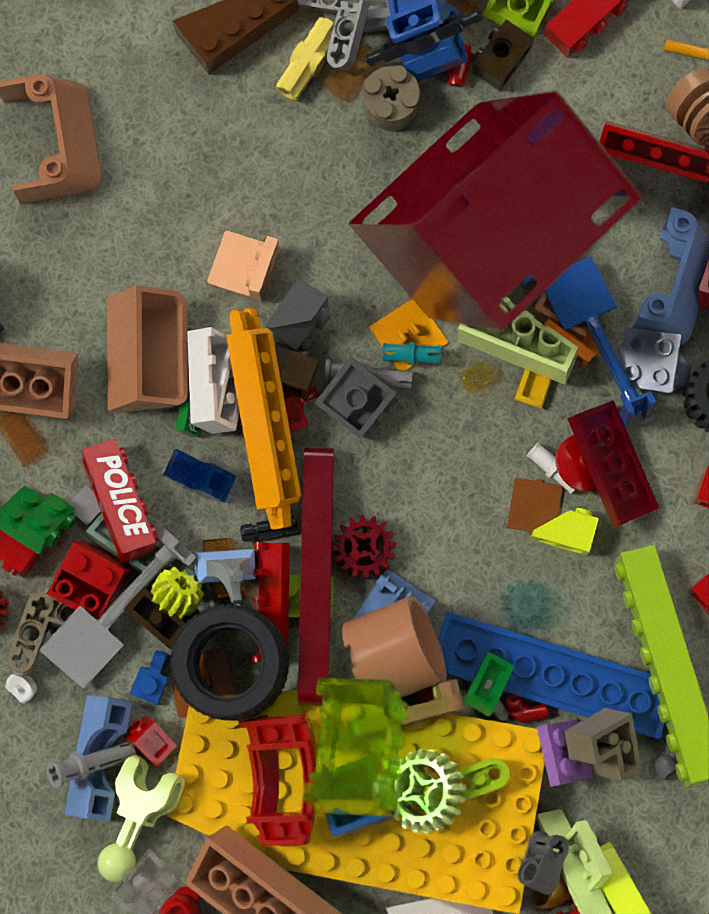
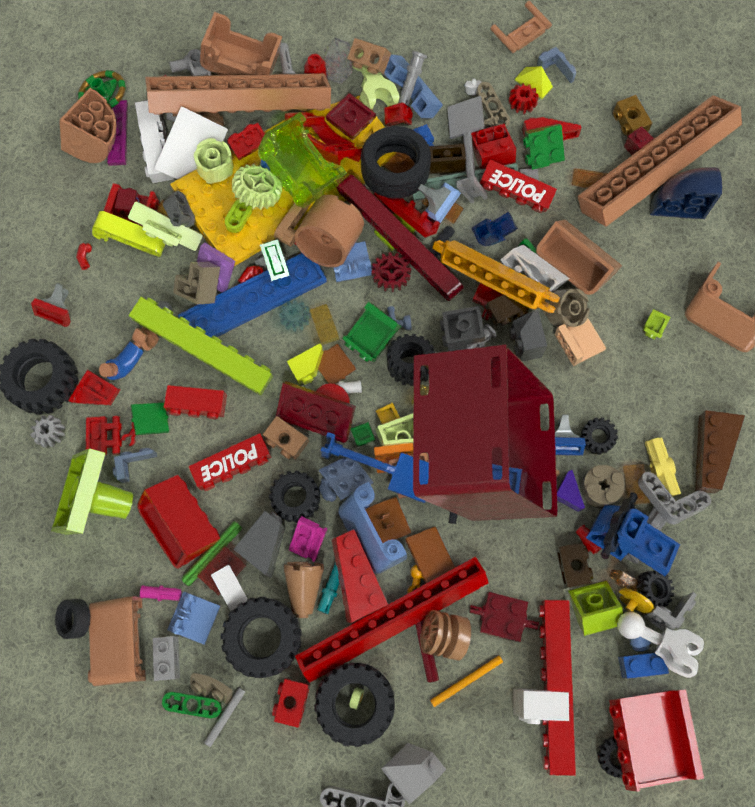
camera: 135 degrees right, 5 degrees down
(106, 842) = (371, 52): none -> medium nougat brick
(146, 202) = (656, 324): none -> lime bracket
(177, 592) = (445, 174): neon yellow gear -> none
(214, 786) = (350, 116): none -> dark red plate
(217, 298) = (570, 308): none -> dark tan brick
(331, 135) = (605, 426): none -> black tyre
(373, 876) = (246, 141): none -> red bracket
(374, 179) = (566, 441): none -> blue piece
(423, 490) = (406, 322): none -> sand blue piece
(425, 419) = (407, 347): none -> black tyre
(428, 888) = (213, 160): none -> yellowish green brick
(429, 126) = (569, 493): none -> dark purple slope
(461, 495) = (371, 333): none -> green panel
(501, 562) = (324, 324): none -> clear yellow slope
(580, 396) = (362, 434): none -> green tile
(622, 77) = (504, 617): none -> dark red plate
(641, 219) = (430, 554): none -> dark orange piece
(644, 275) = (388, 520): none -> dark orange piece
(667, 198) = (416, 574): none -> light orange arm
(669, 488) = (279, 429): none -> medium nougat brick

